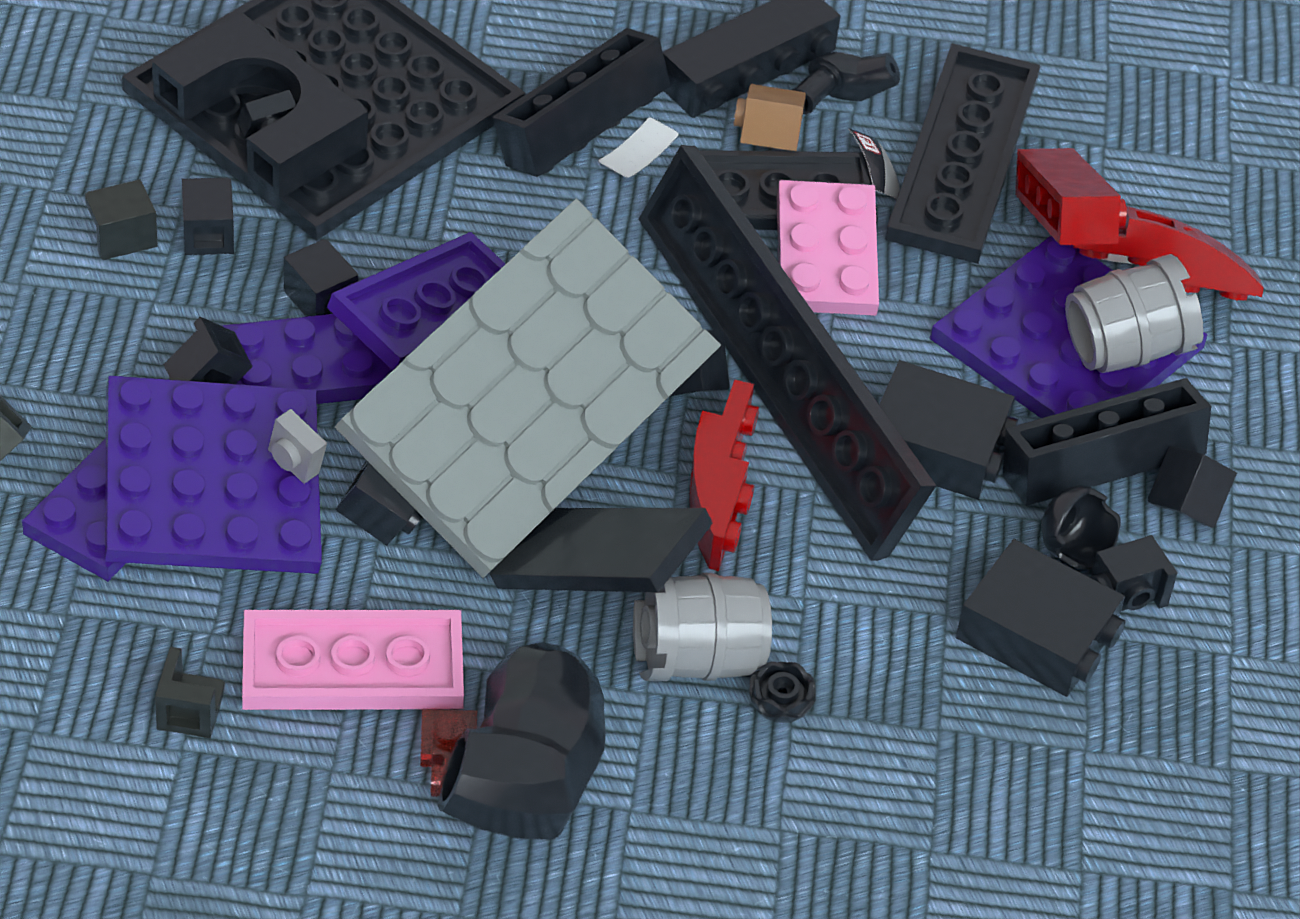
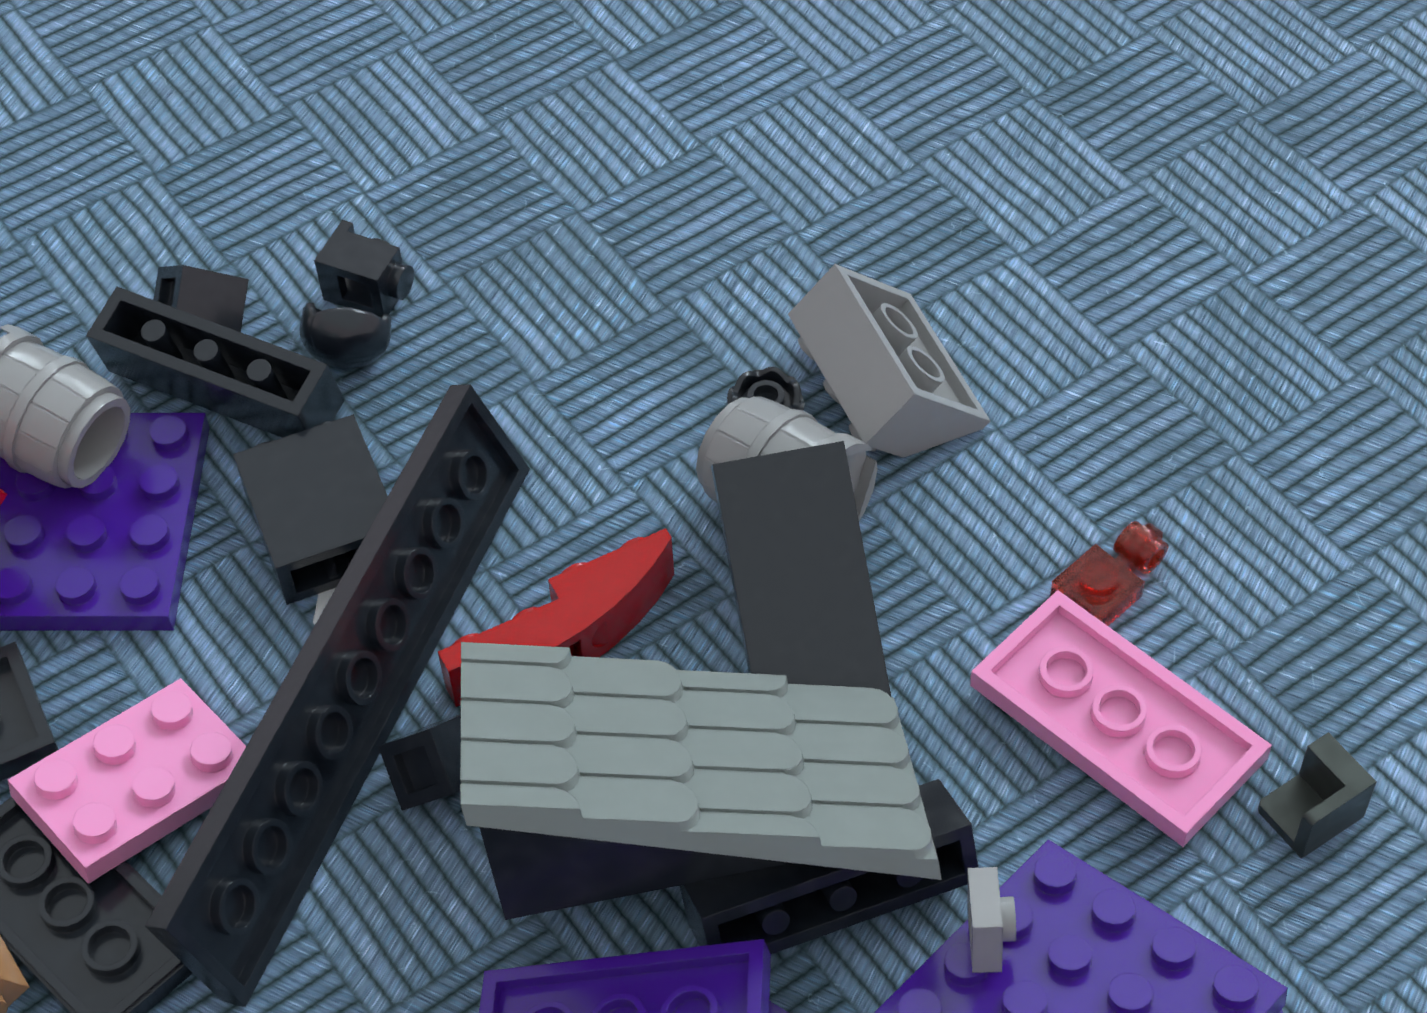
camera: 125 degrees left, 5 degrees up
(533, 748) = (1056, 488): black piece -> none
(736, 773) = (884, 364): none -> light grey slope
(1041, 618) = (480, 297): black brick -> none

